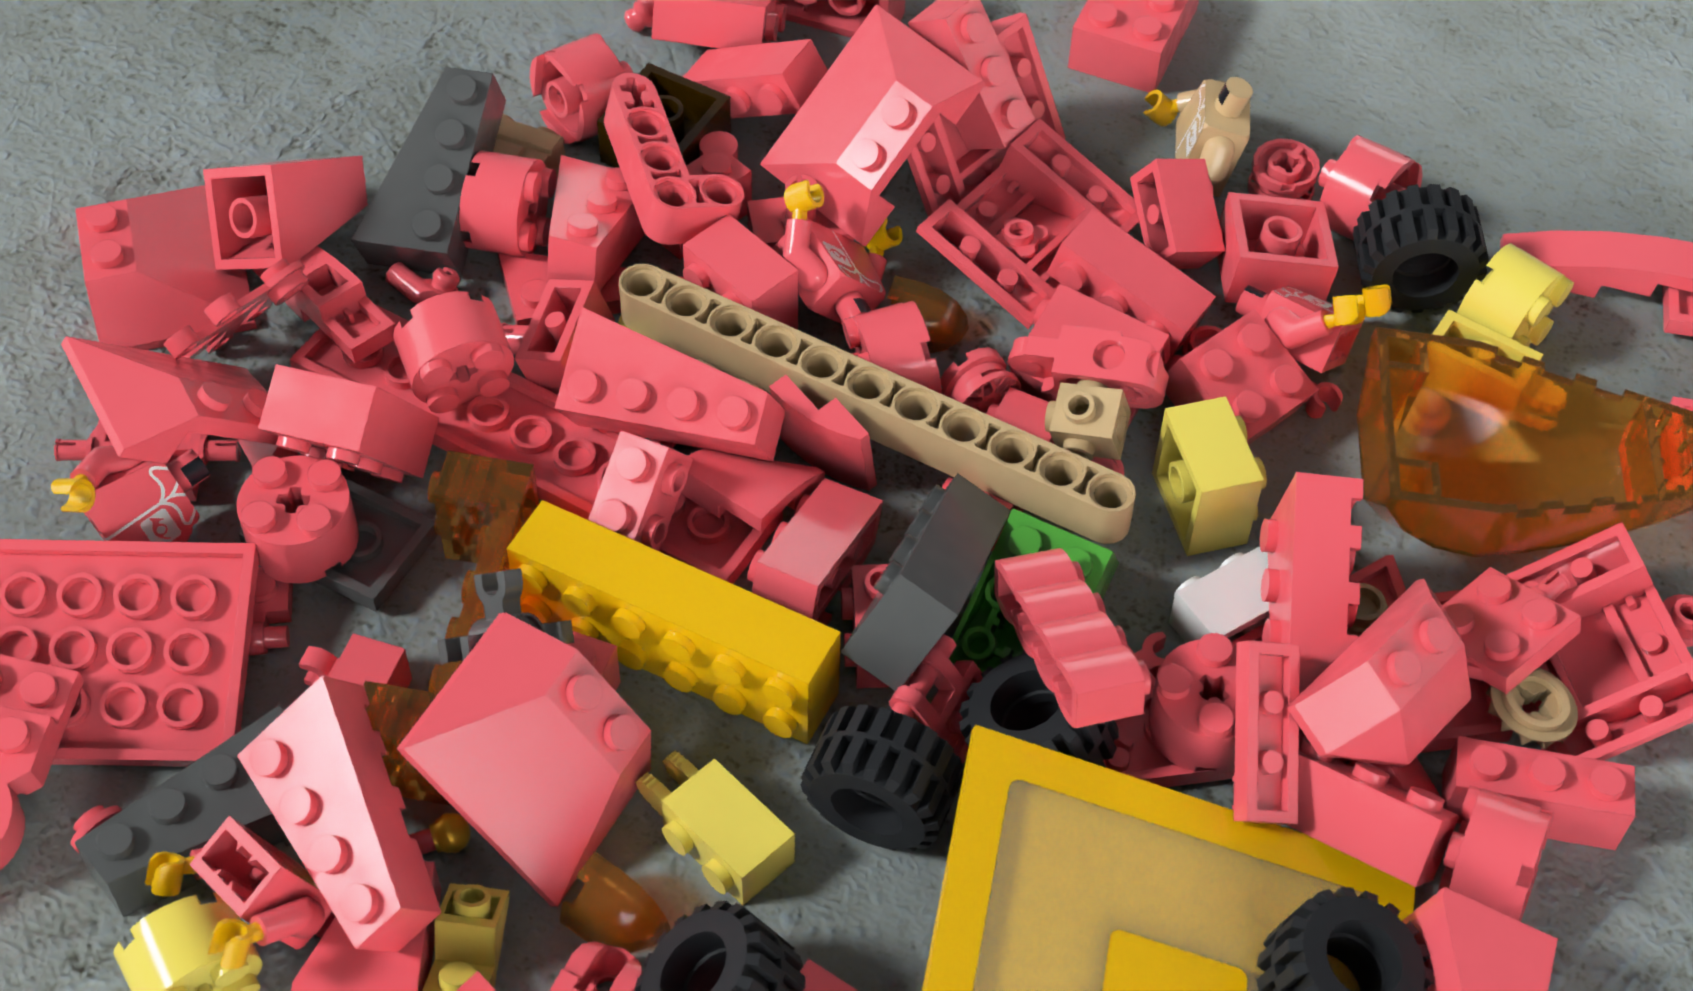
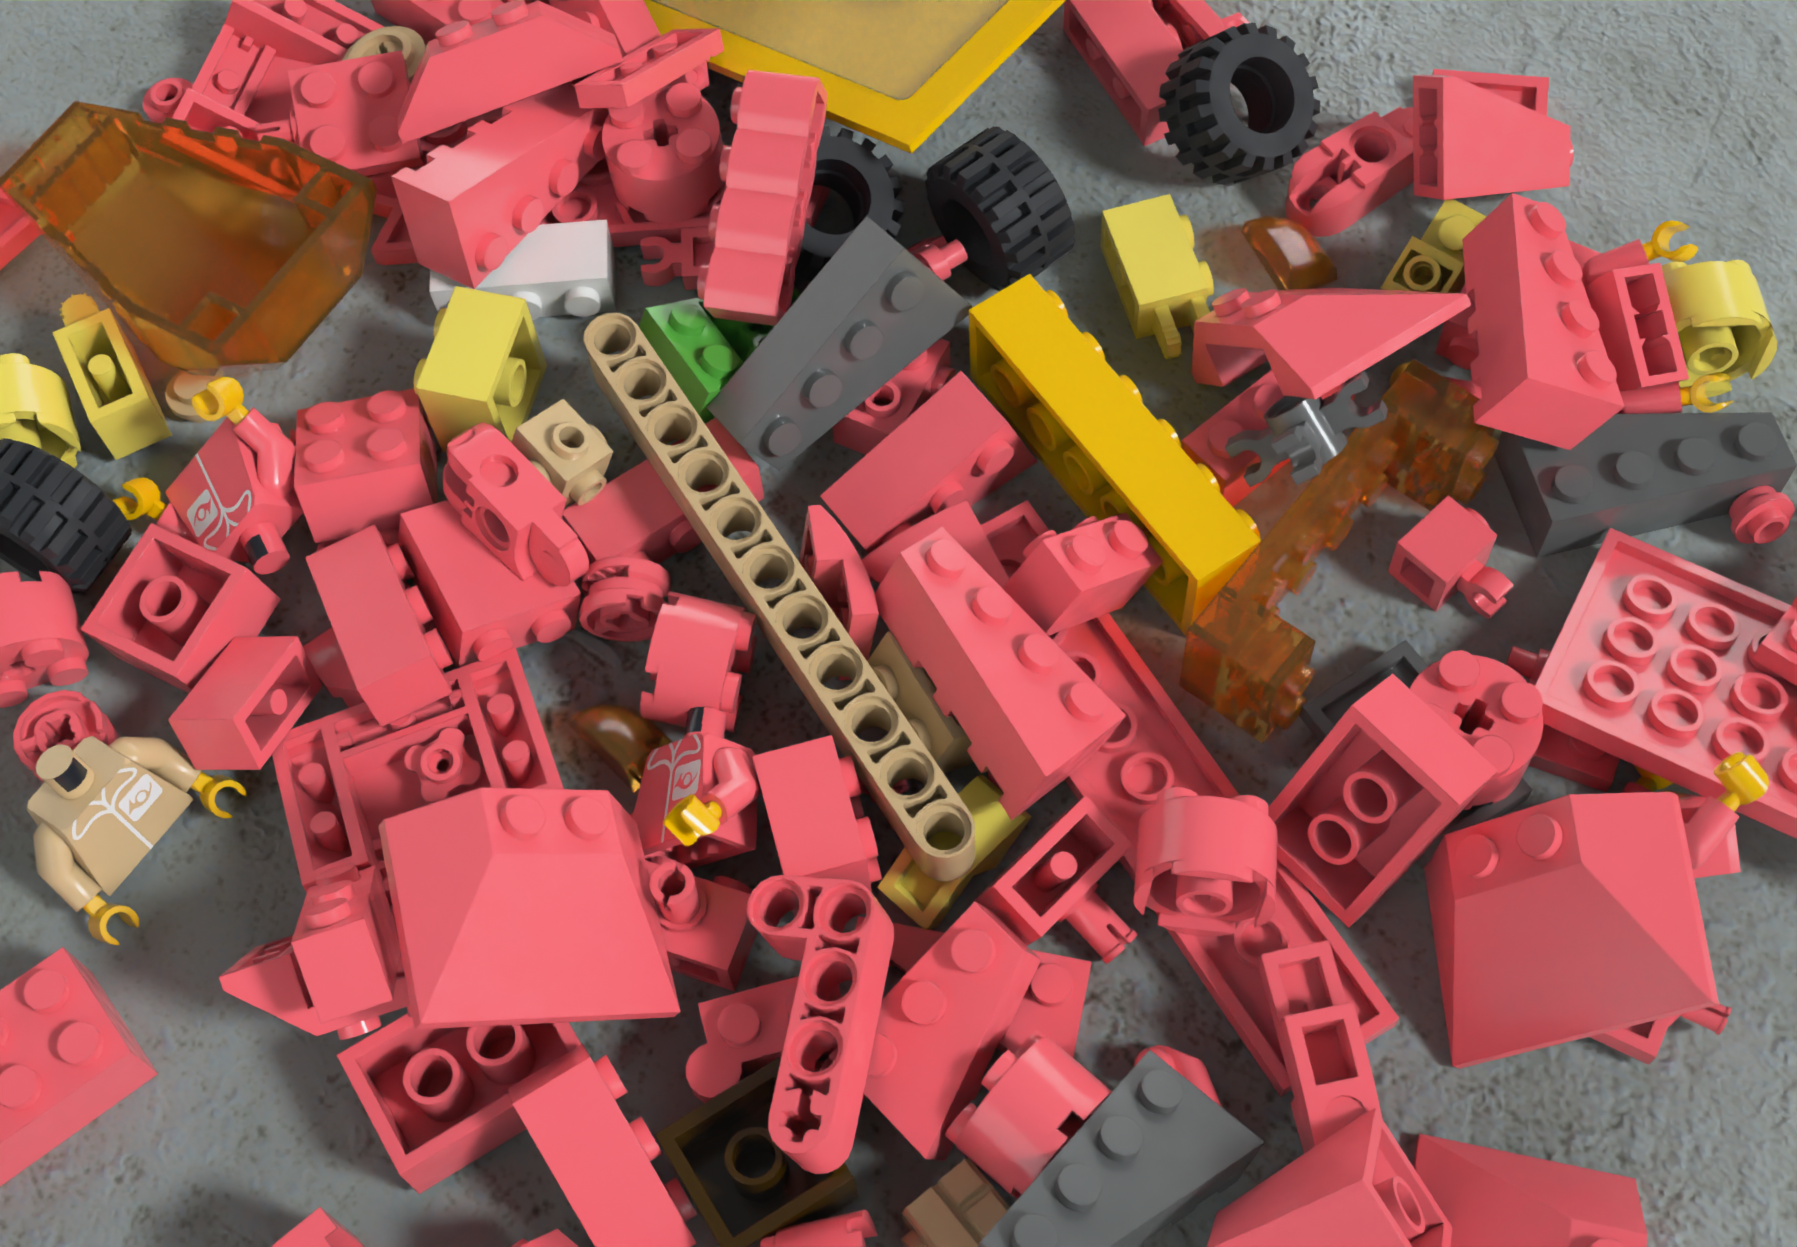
camera: 145 degrees left, 10 degrees up
(227, 314) = (1395, 1042): coral plant -> none

